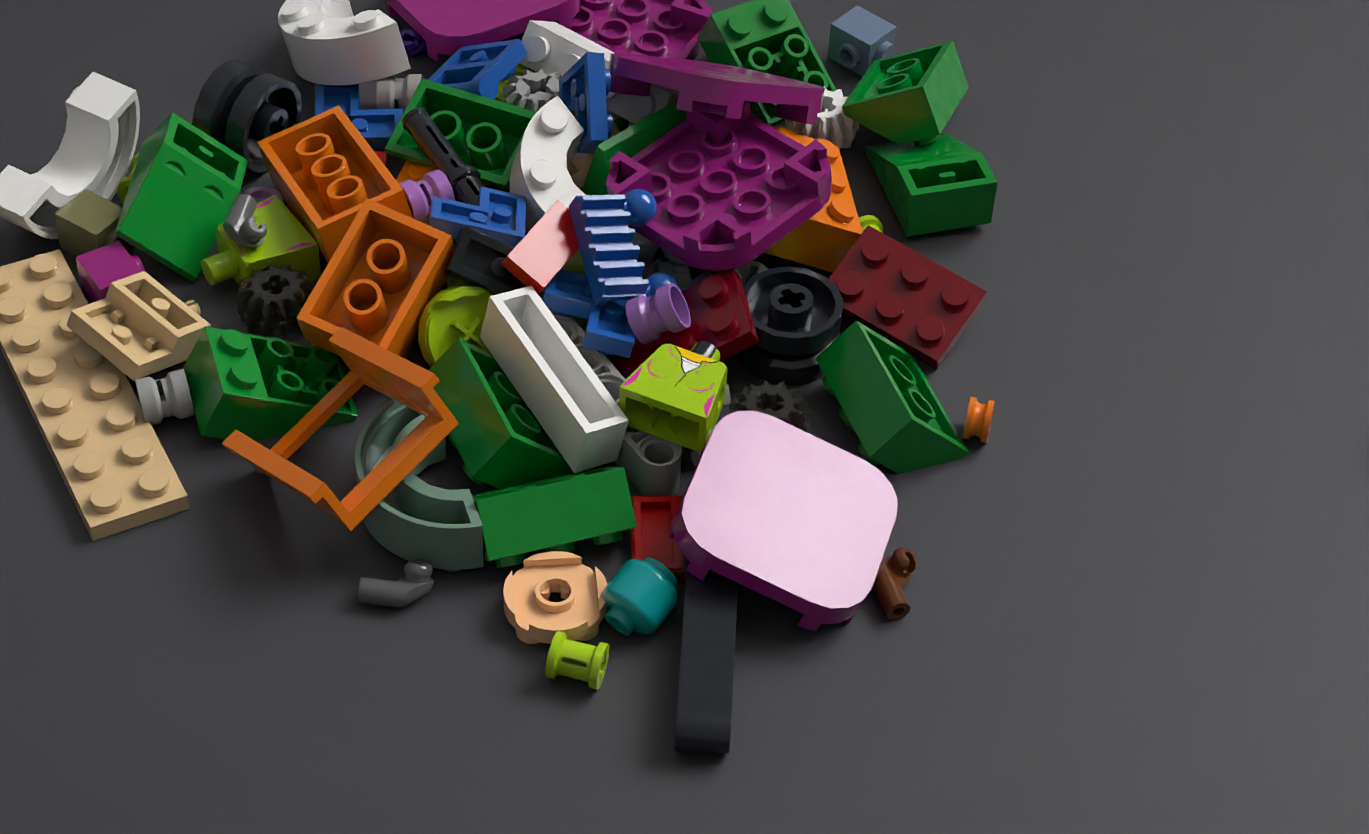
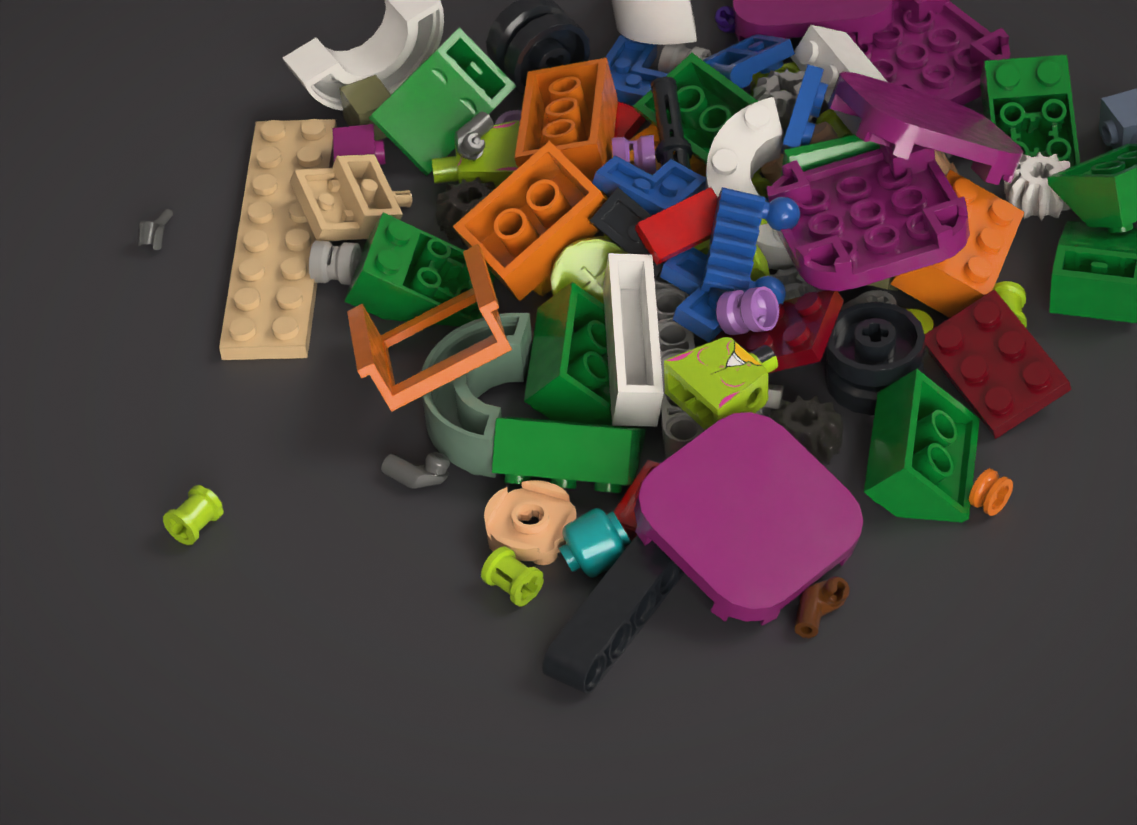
camera: 35 degrees right, 0 degrees up
(181, 726) = (193, 515): none -> lime bush

